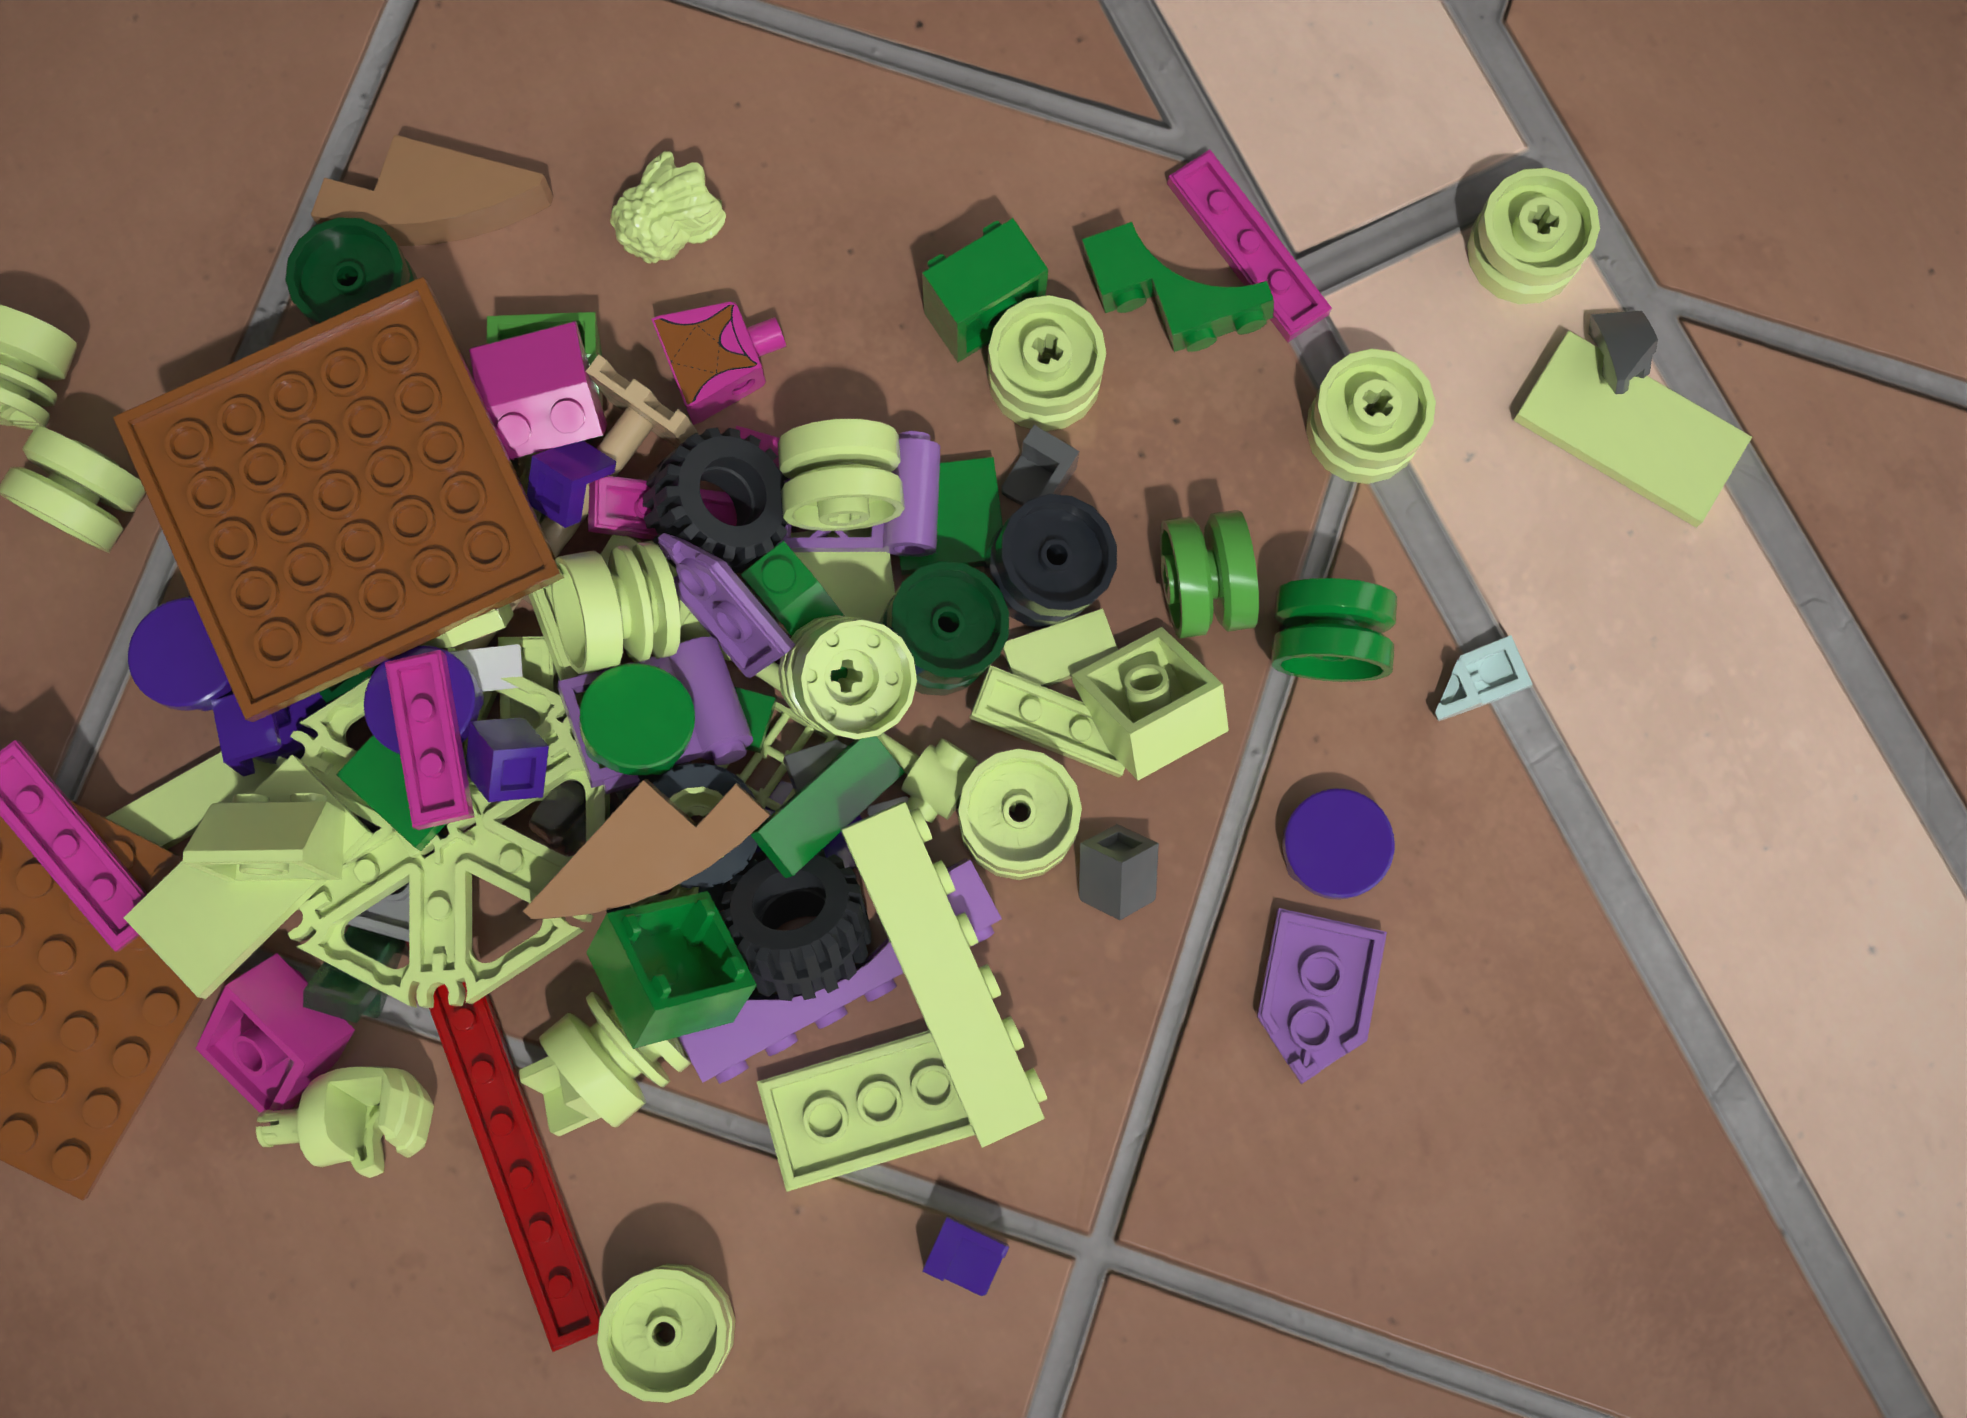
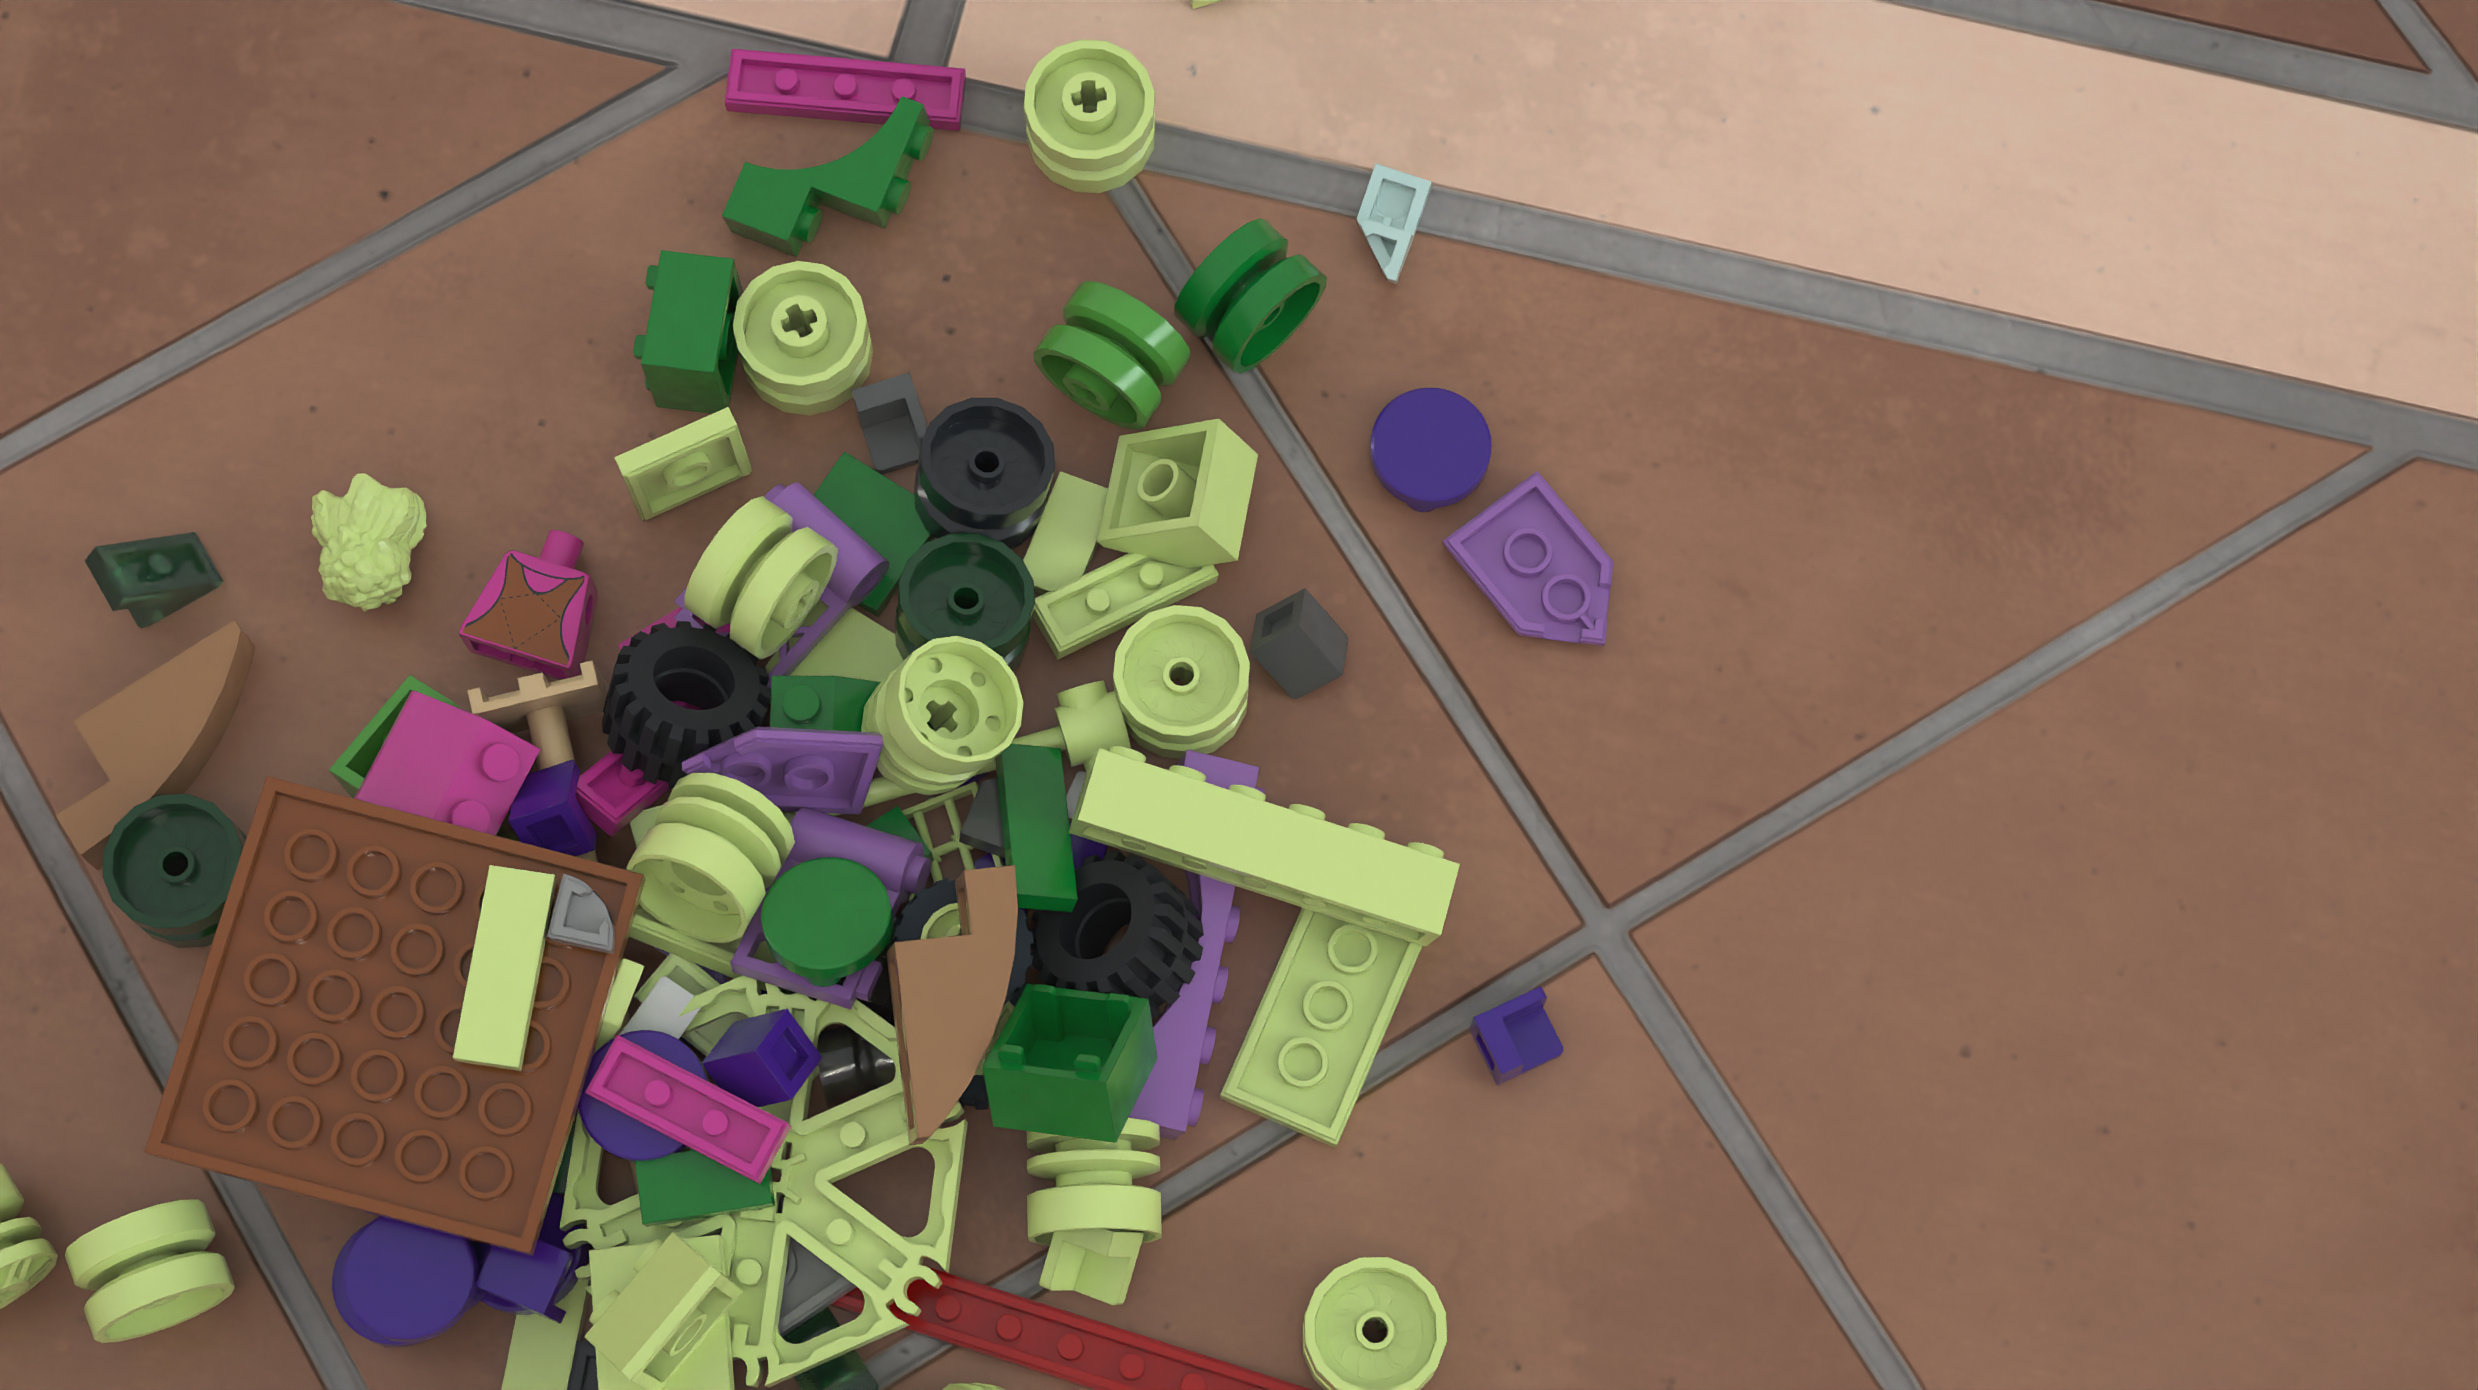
camera: 50 degrees left, 5 degrees down
(417, 538) = (505, 968): none -> yellowish green tile
(494, 559) = (581, 918): none -> light grey tile
(536, 101) = (153, 575): none -> clear green slope
(888, 361) = (684, 464): none -> yellowish green tile

